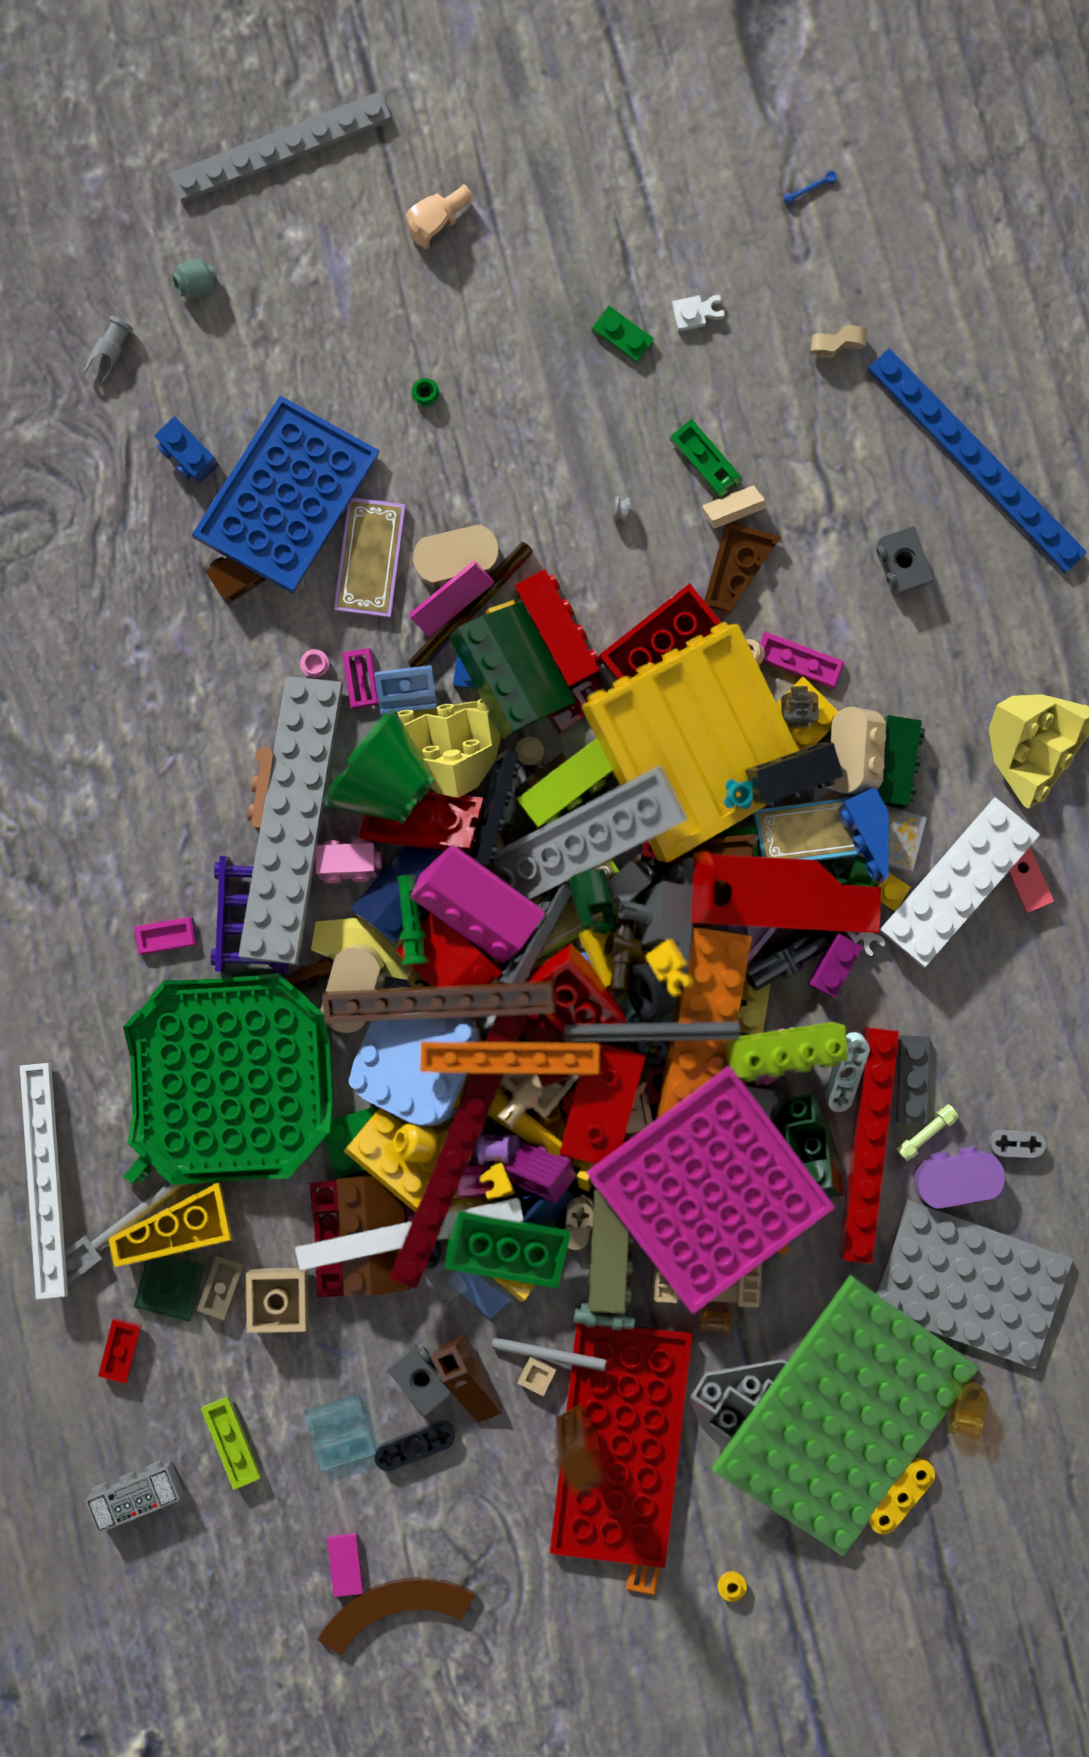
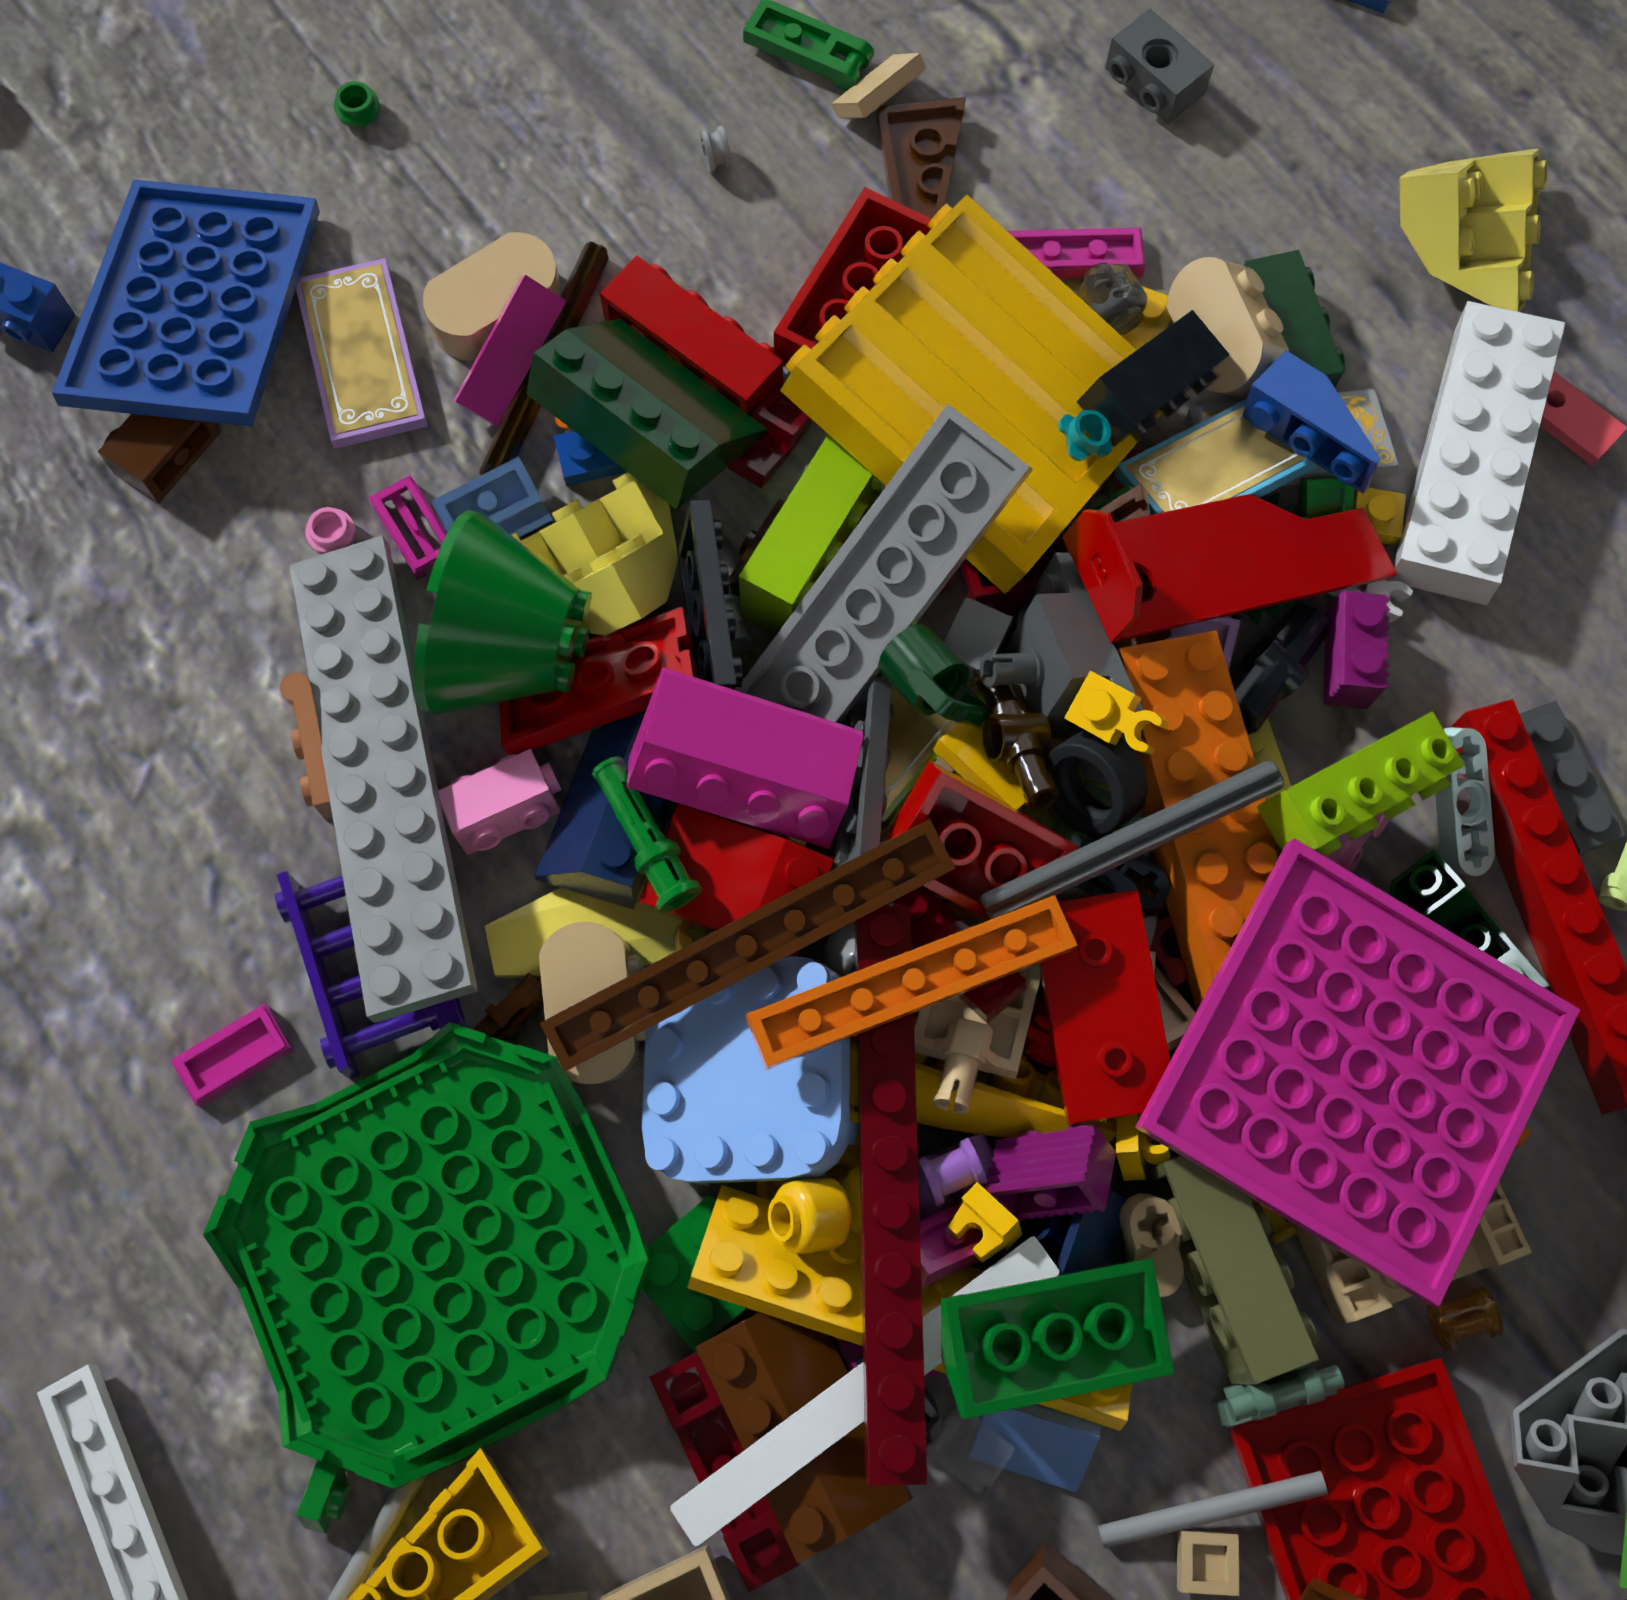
camera: 25 degrees left, 15 degrees down
(530, 750) = (734, 525): tan plate -> none

